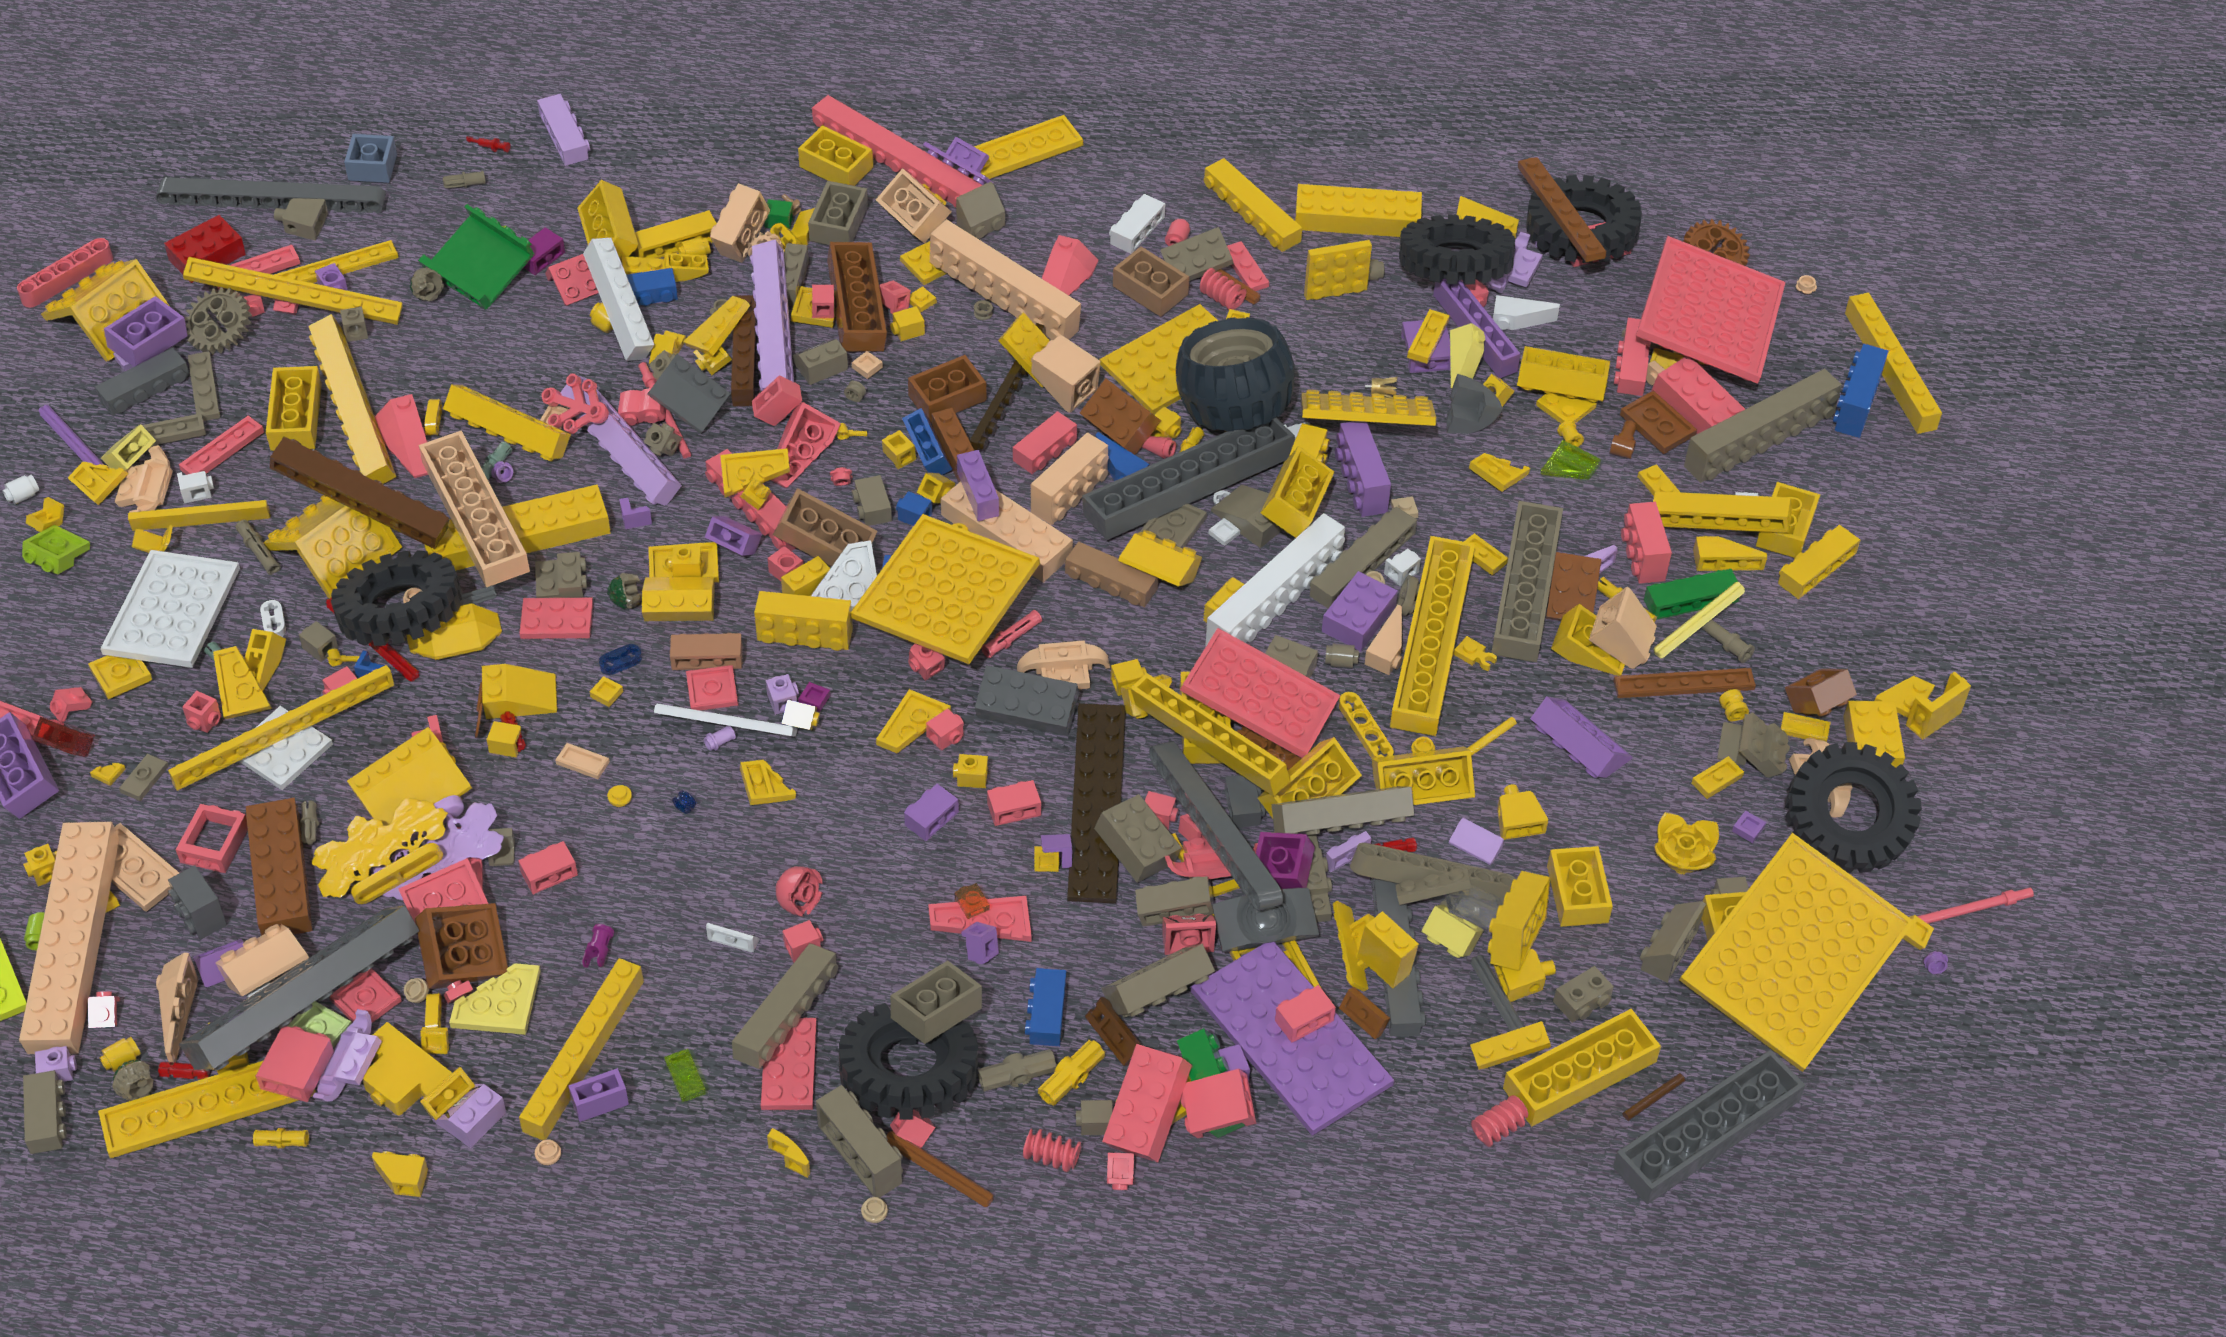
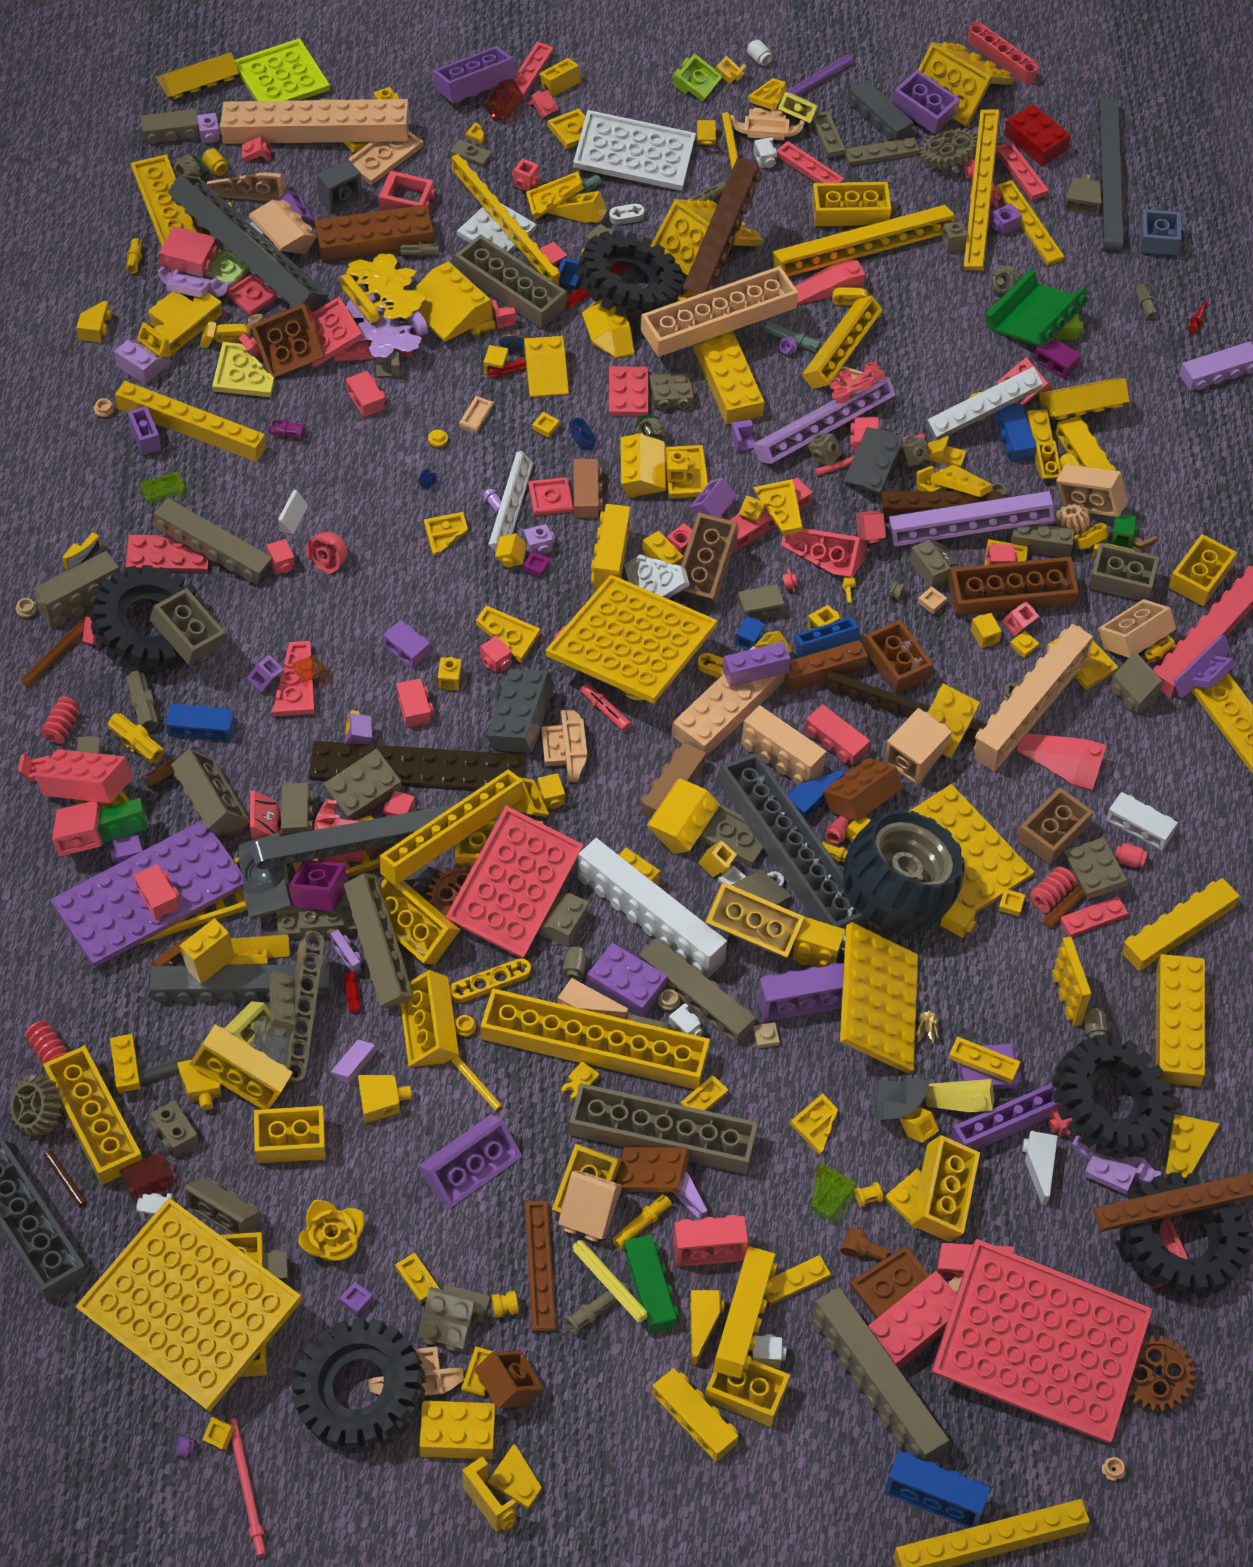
camera: 90 degrees right, 5 degrees up
(25, 682) = (560, 77): none -> yellow hinge
(379, 723) = (511, 281): none -> dark tan brick
(1208, 536) = (717, 859): none -> yellow brick
(1570, 1116) = (35, 1105): none -> dark tan gear
(1647, 1009) = (147, 1176): none -> clear red brick
(1679, 1004) = (149, 1205): none -> white brick

